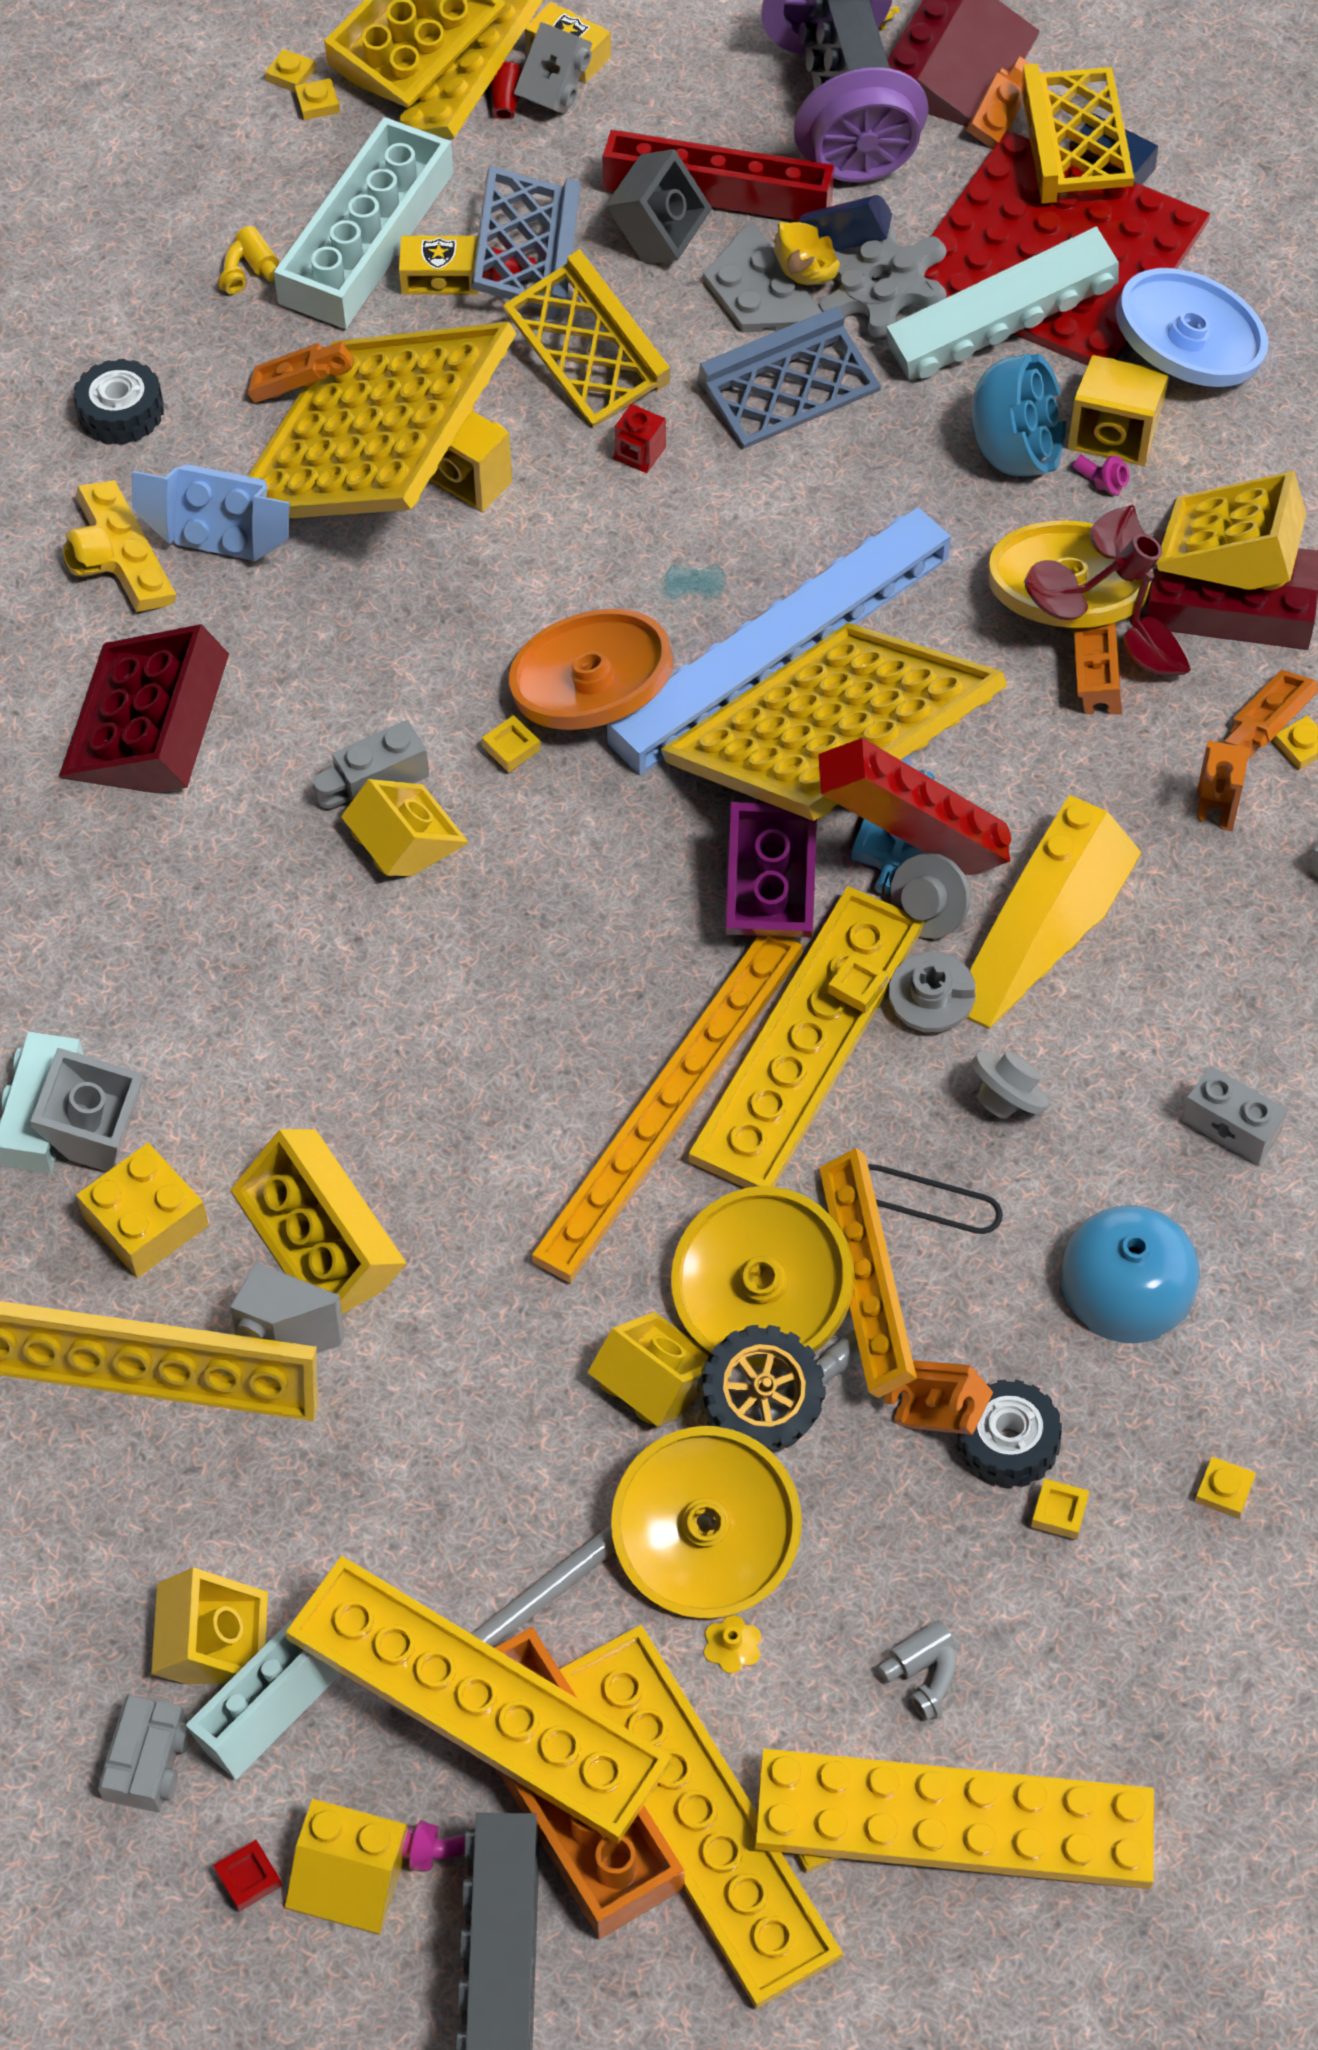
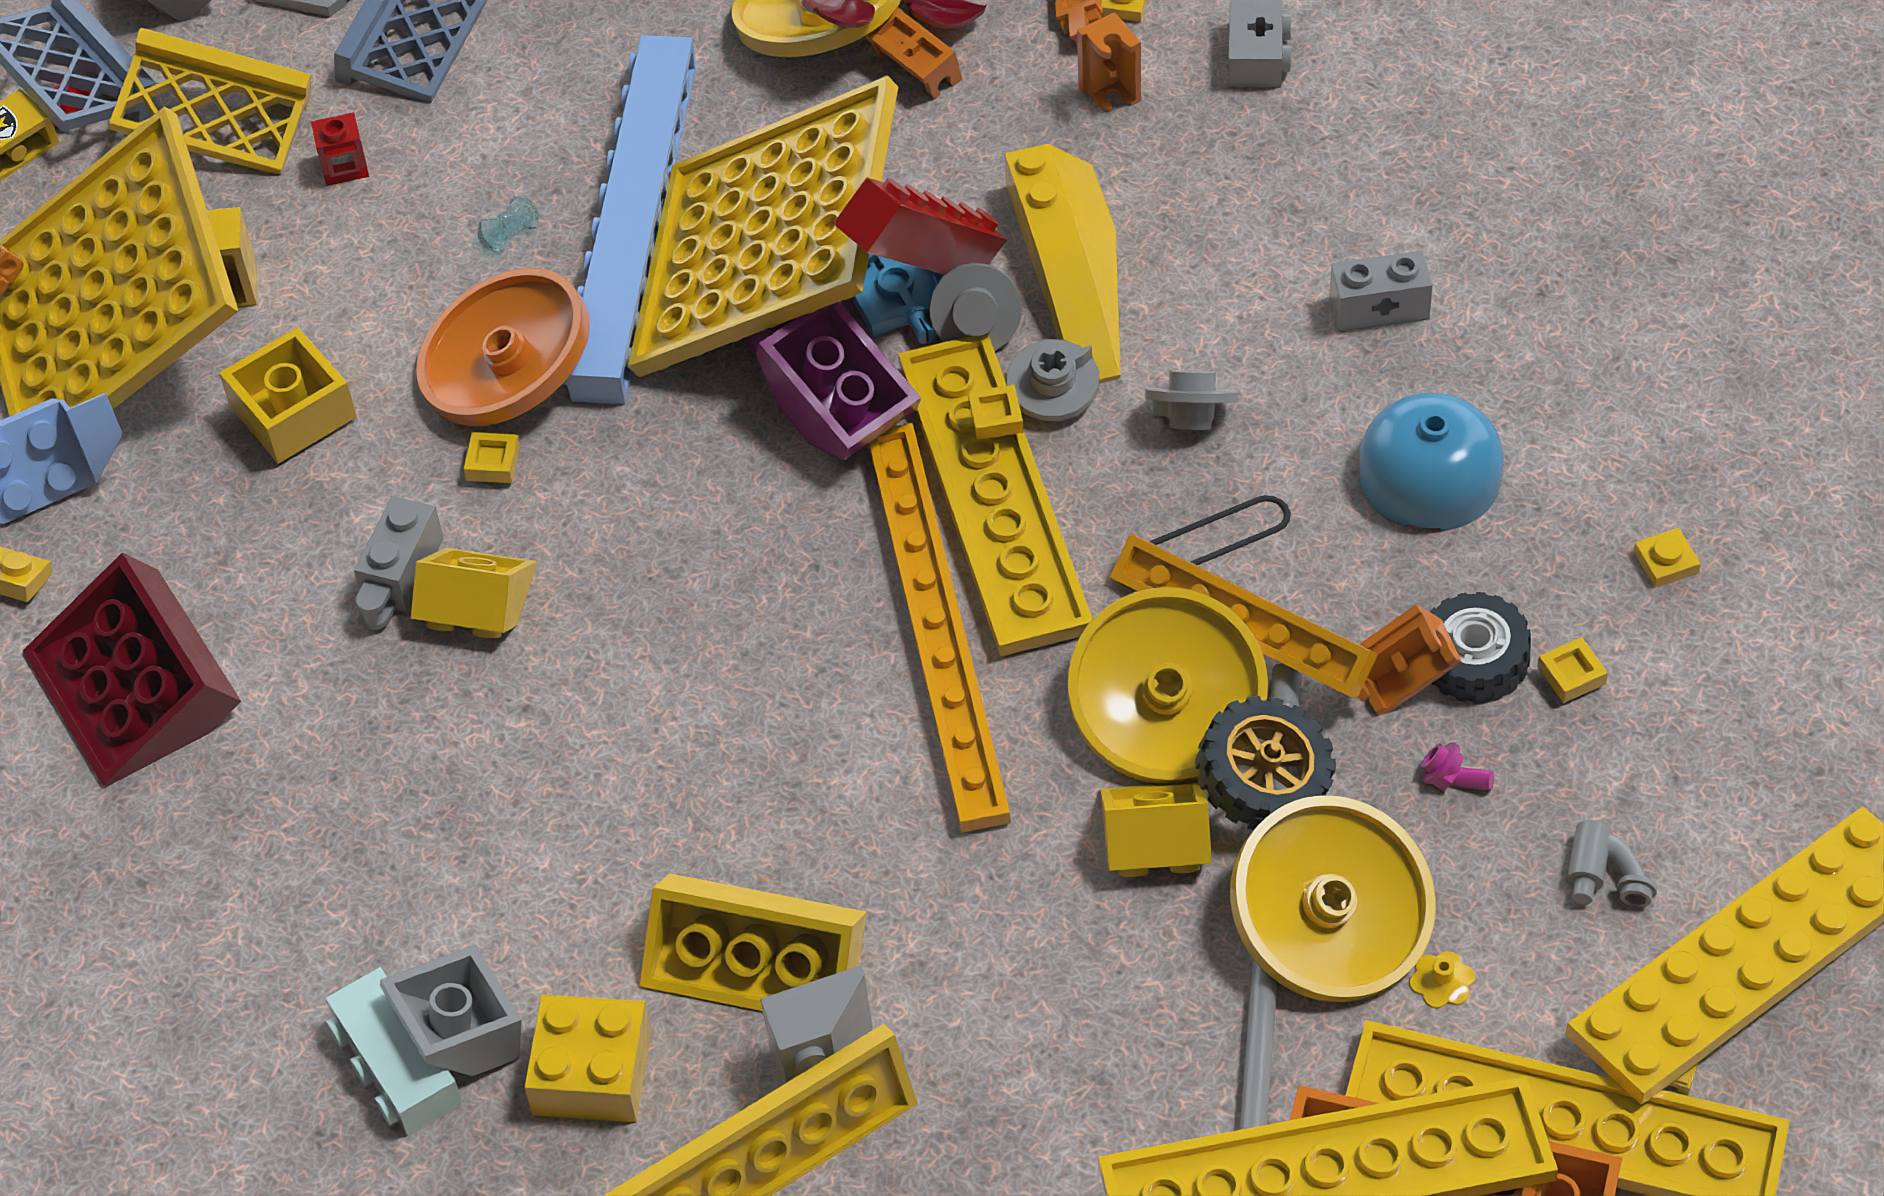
camera: 40 degrees left, 5 degrees down
(423, 594) = (288, 394): none -> yellow brick
(895, 1499) = (1445, 768): none -> dark pink plate

